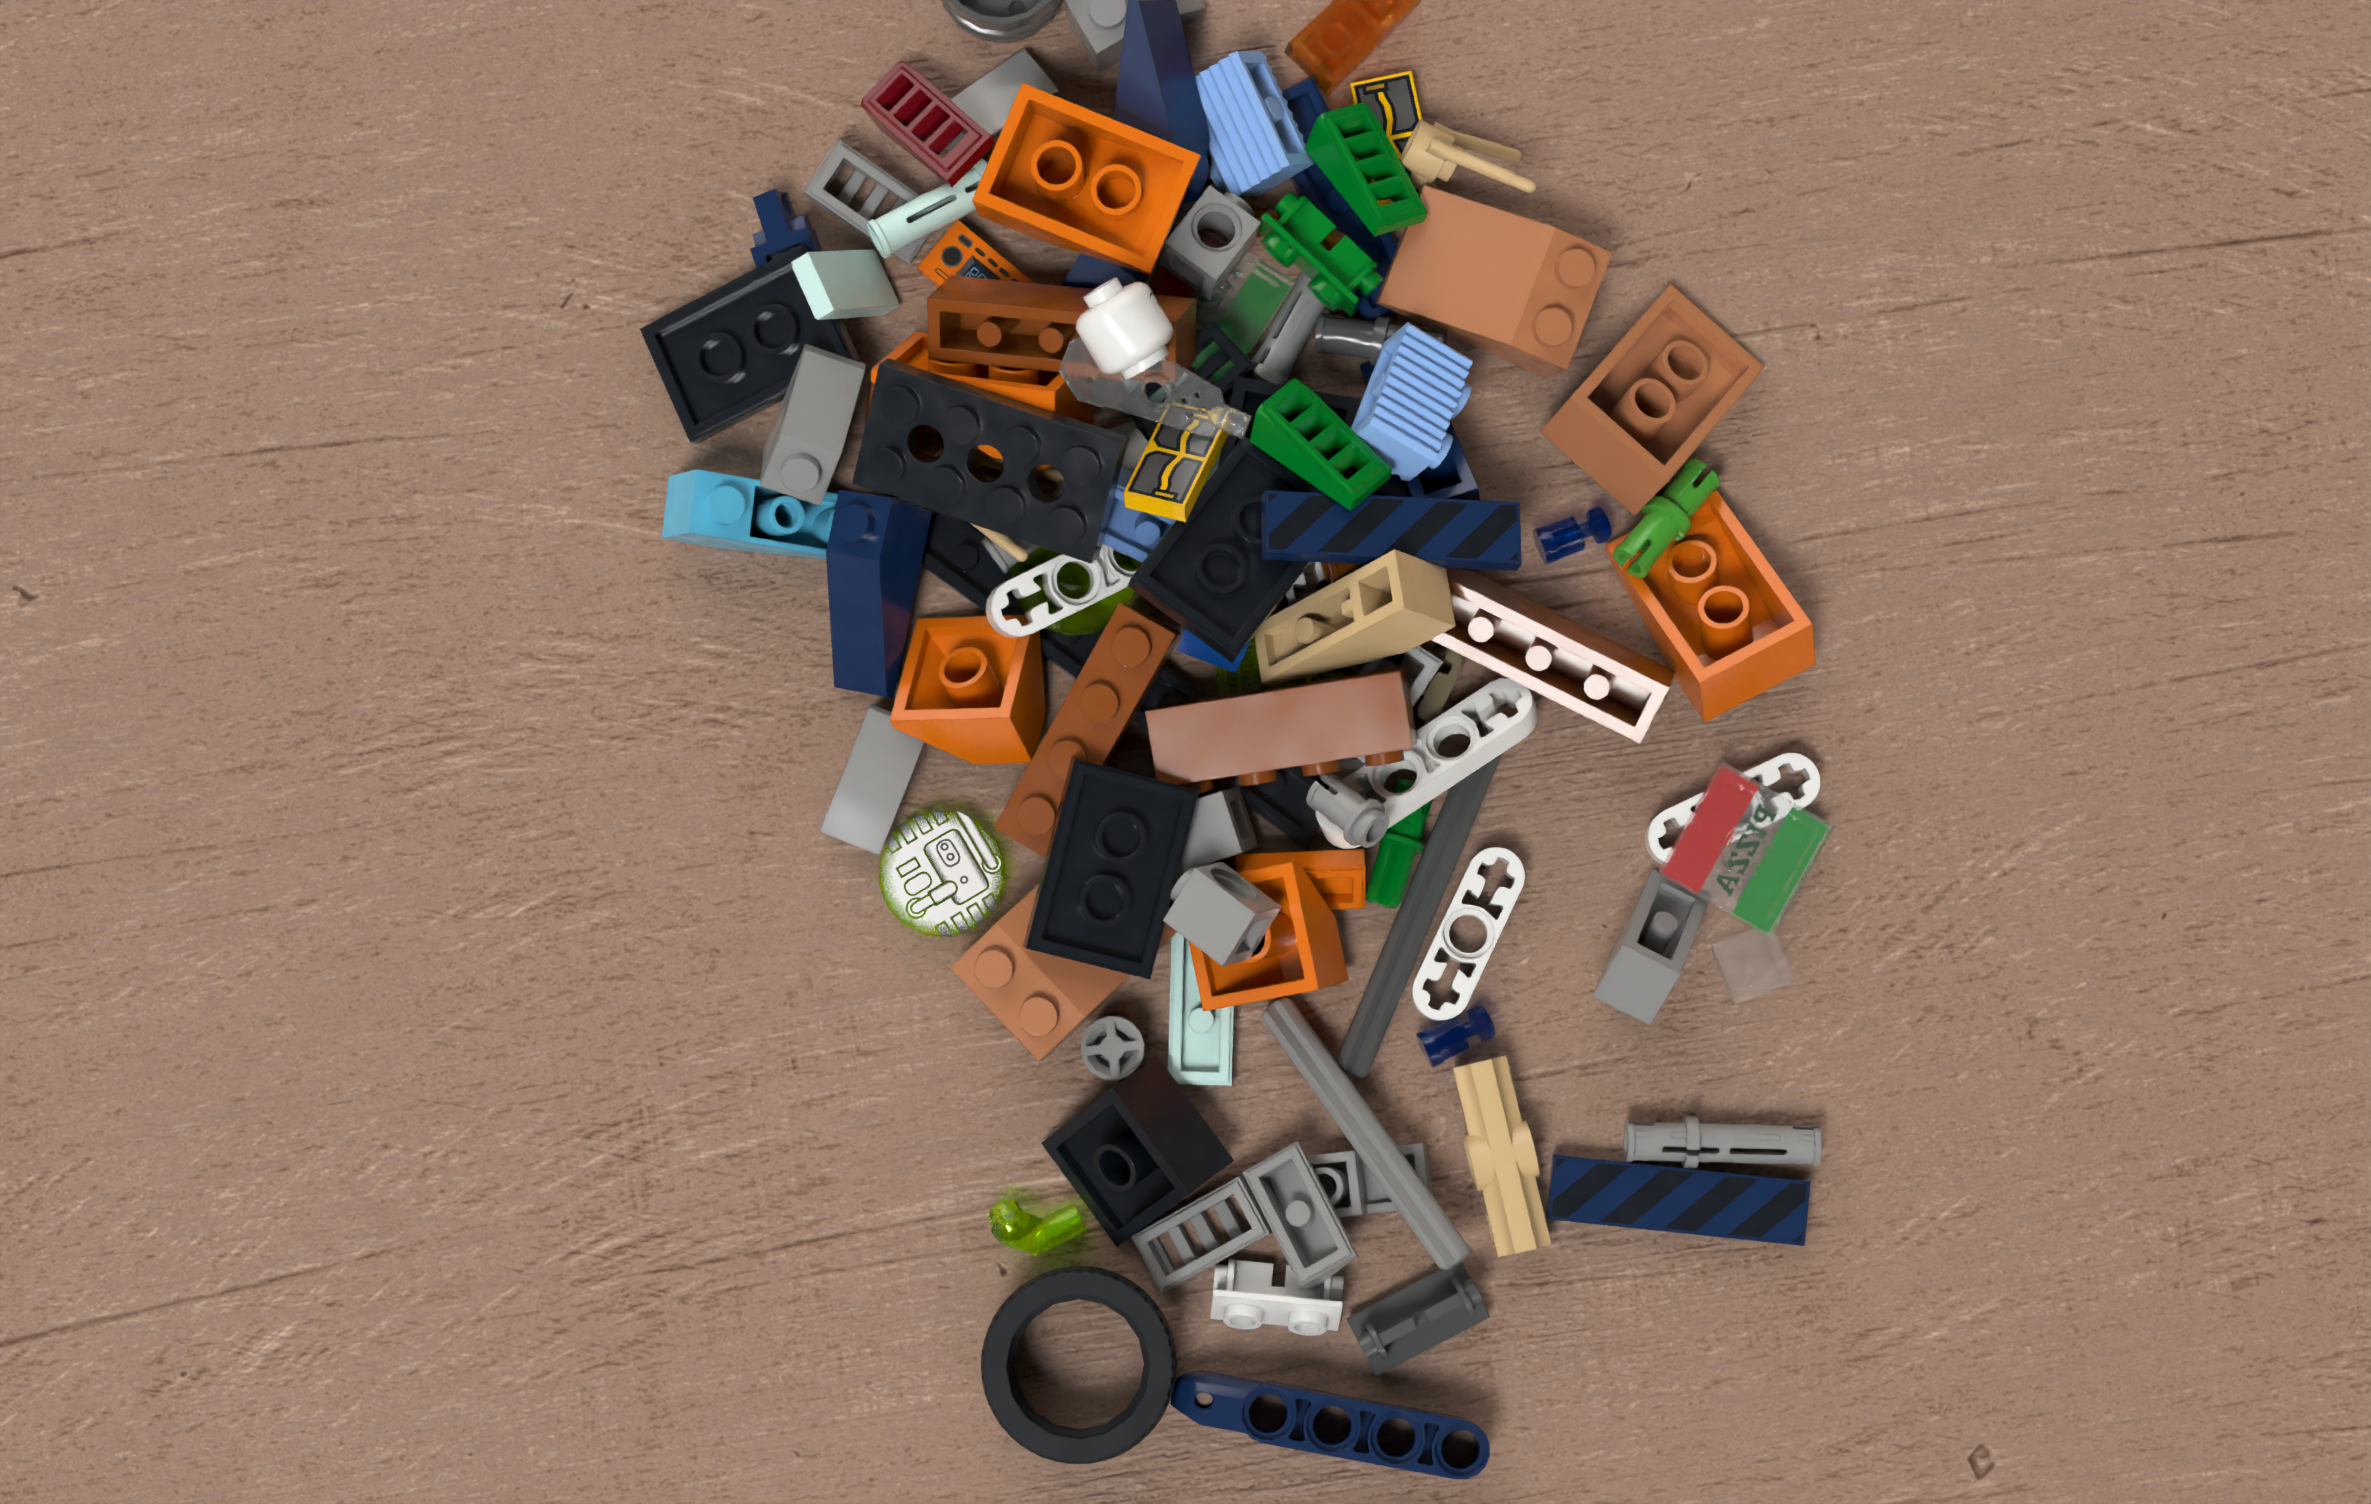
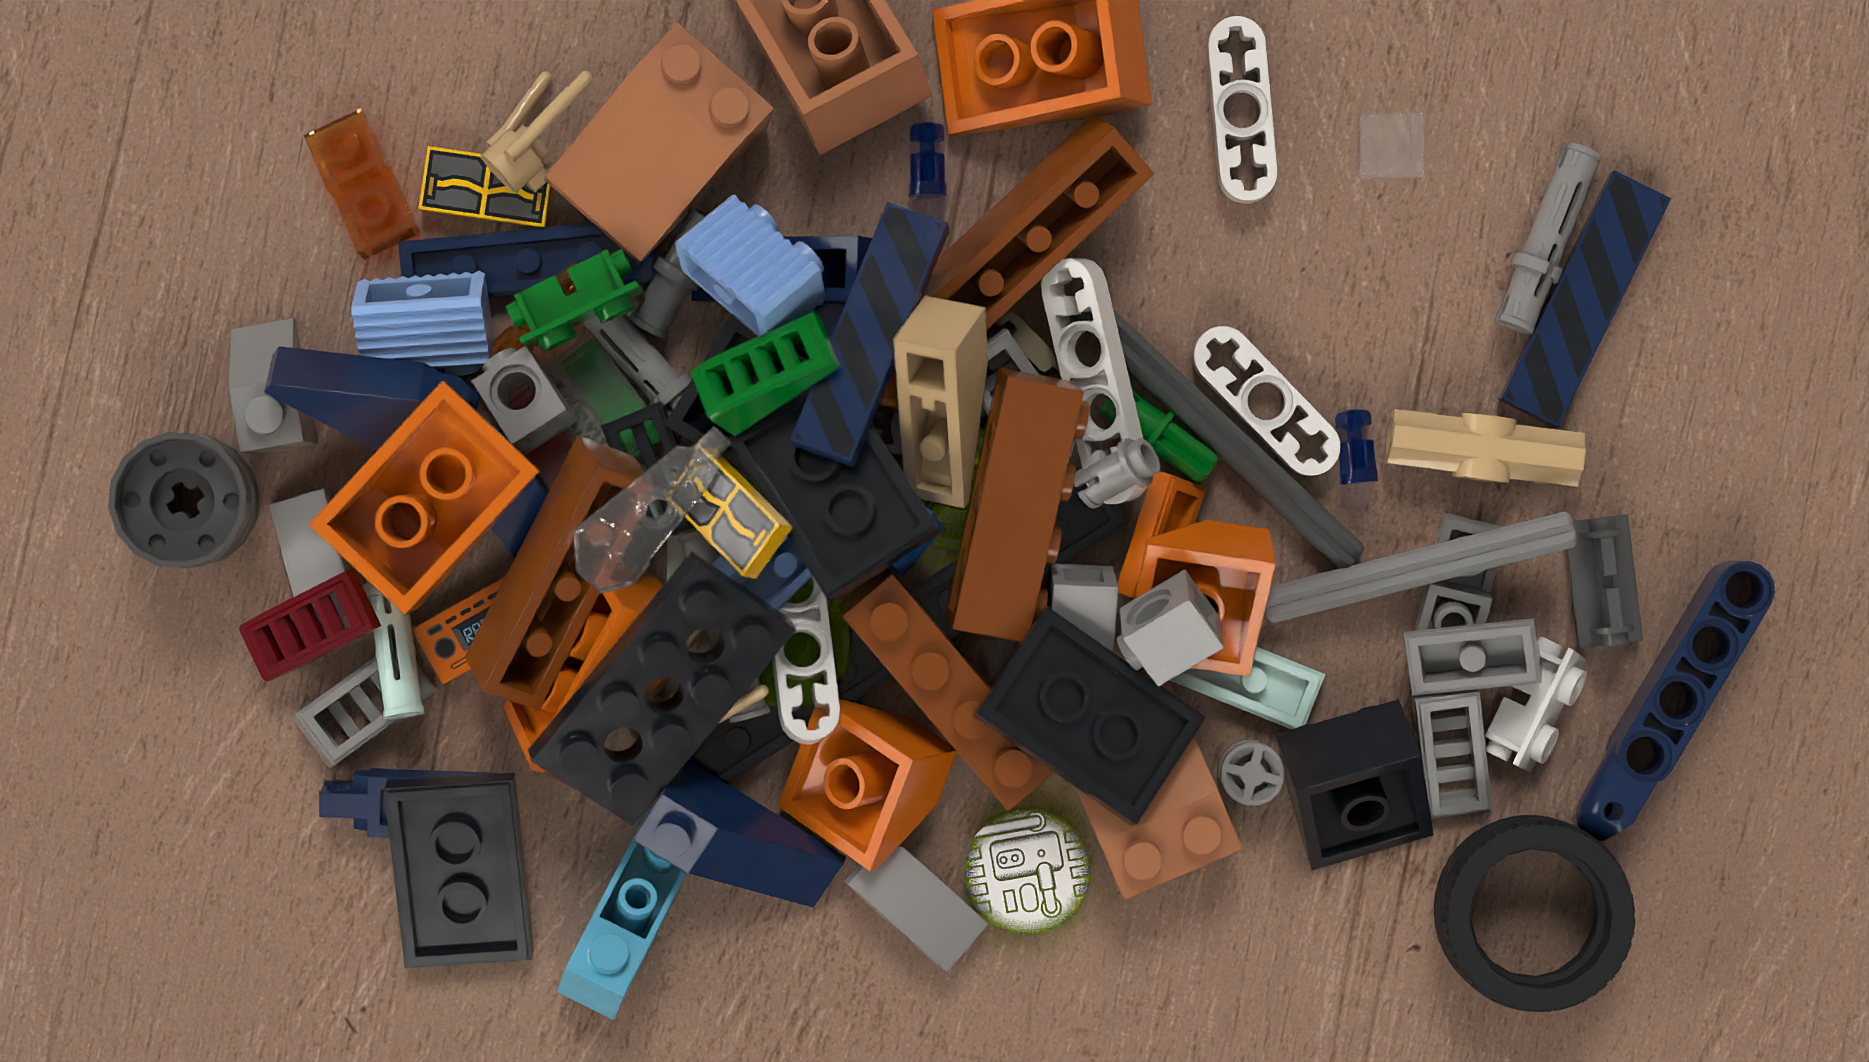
camera: 65 degrees left, 5 degrees up
(811, 425) = (561, 842): light grey slope -> none
(845, 284) = (436, 761): light aqua tile -> none
(1031, 1233) = (1394, 908): clear neon green arm -> none
(1124, 328) = (588, 518): white head -> none
(1357, 133) = (471, 224): green slope -> none
(1650, 949) = (1343, 234): light grey slope -> none
(1666, 518) = (947, 67): bright green pin -> none
(1746, 849) = (1286, 112): clear tile -> none

